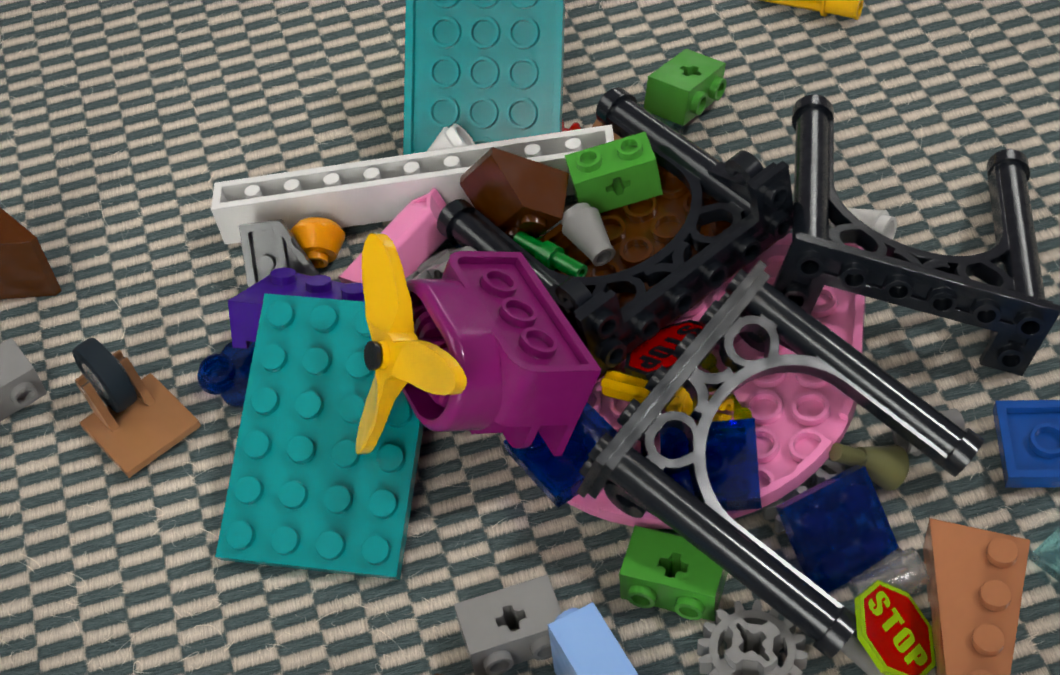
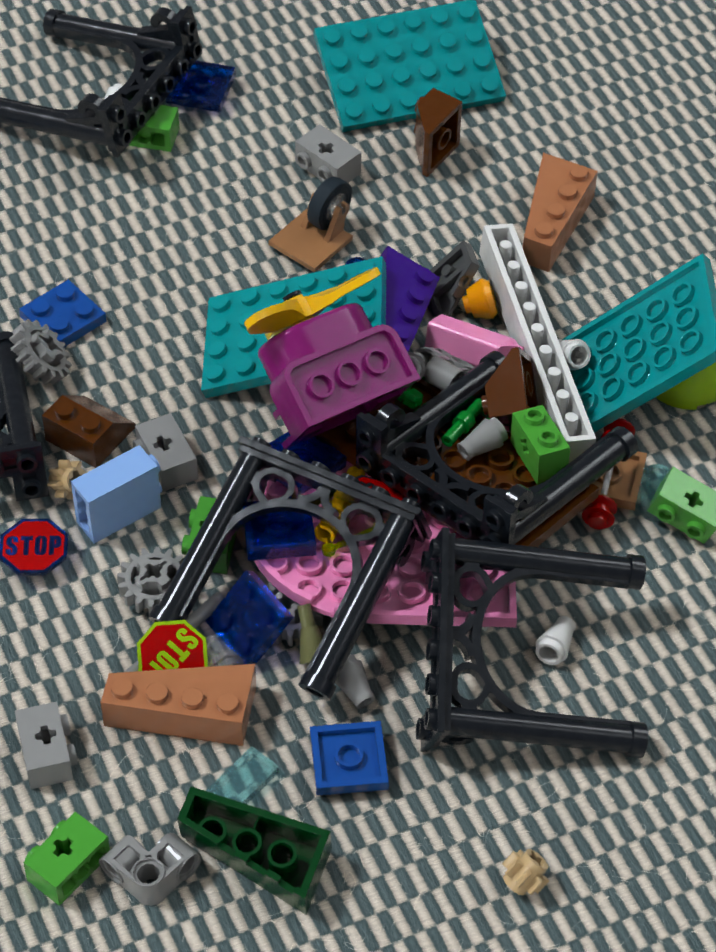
camera: 75 degrees right, 0 degrees up
(176, 152) = (557, 206): none -> nougat wedge

